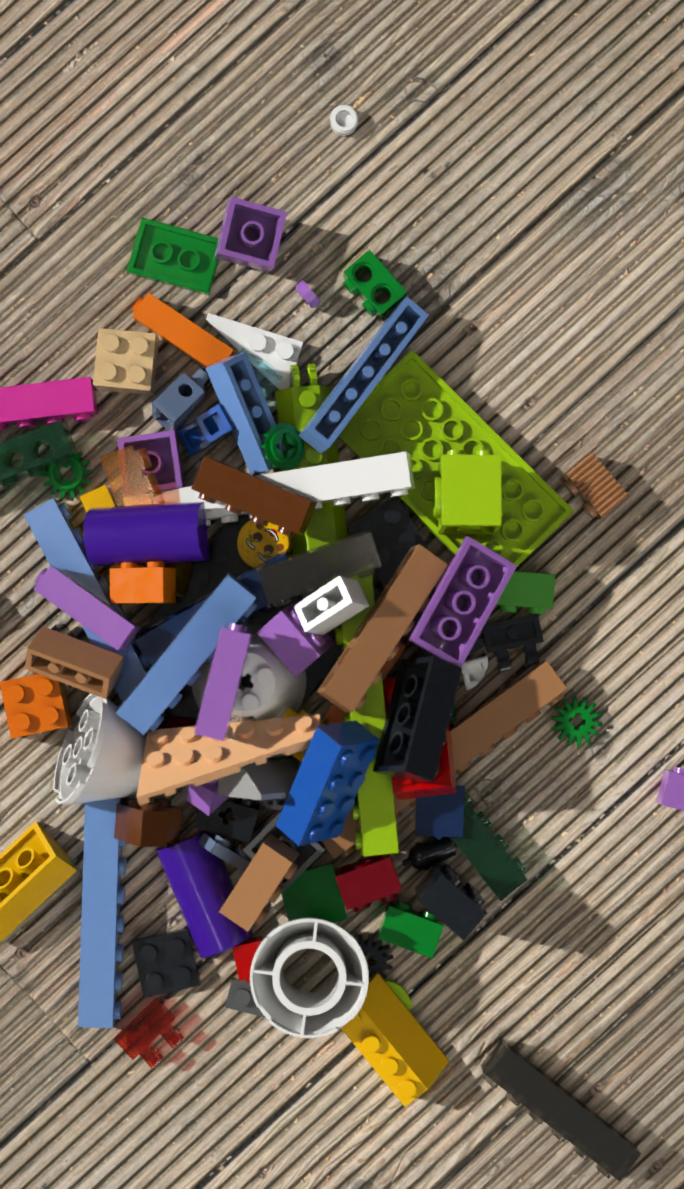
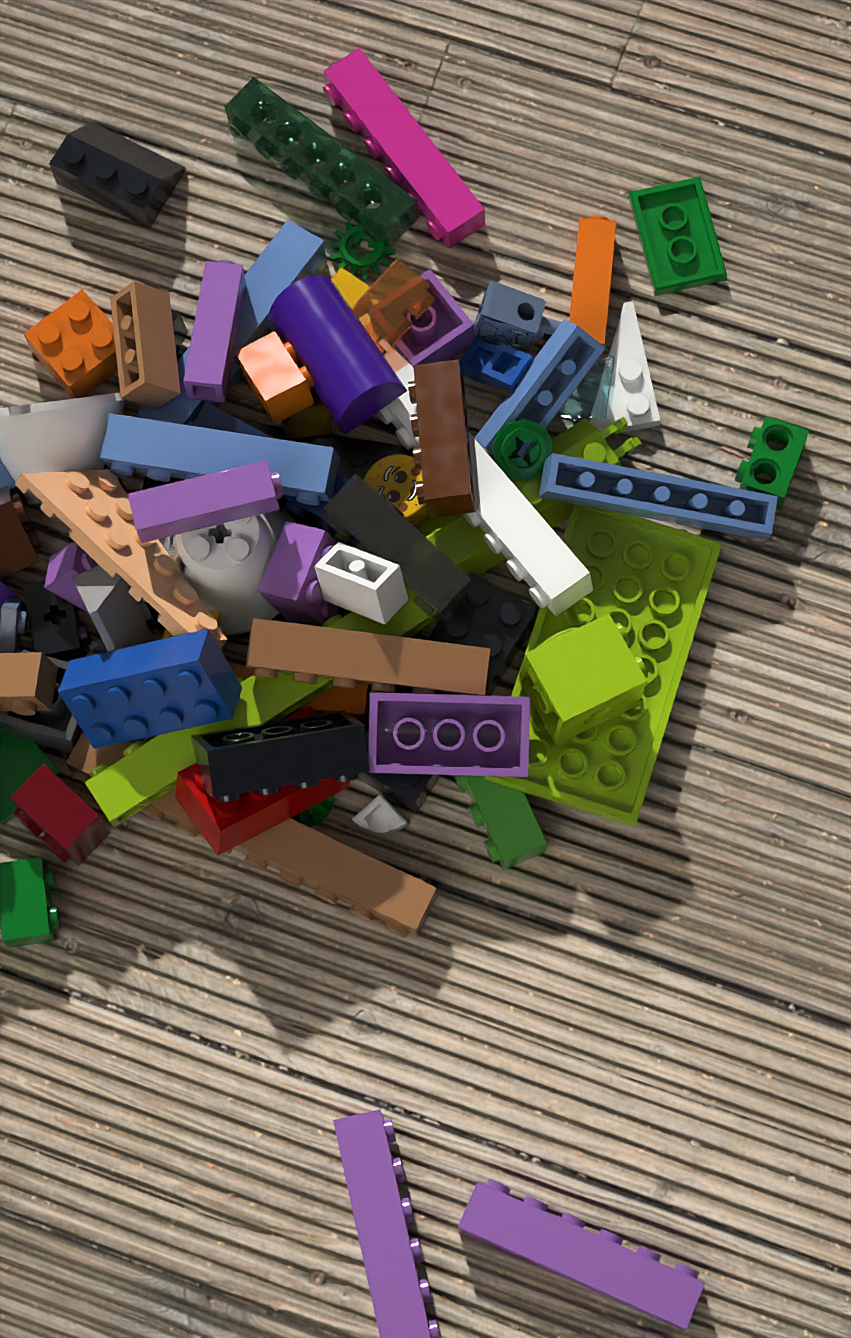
camera: 70 degrees right, 15 degrees down
(126, 361) = (525, 241): tan brick -> none
(250, 234) = (747, 294): medium lavender brick -> none
(307, 294) = (718, 395): medium lavender tile -> none
(429, 853) = (131, 878): black piece -> none
(440, 815) = (183, 858): dark blue piece -> none
(450, 901) = (84, 918): black brick -> none
(488, 853) = (172, 927): clear green brick -> none
(512, 634) = (449, 838): black plate -> none
(569, 712) = (377, 987): green gear -> none
(594, 486) = (681, 840): medium nougat brick -> none

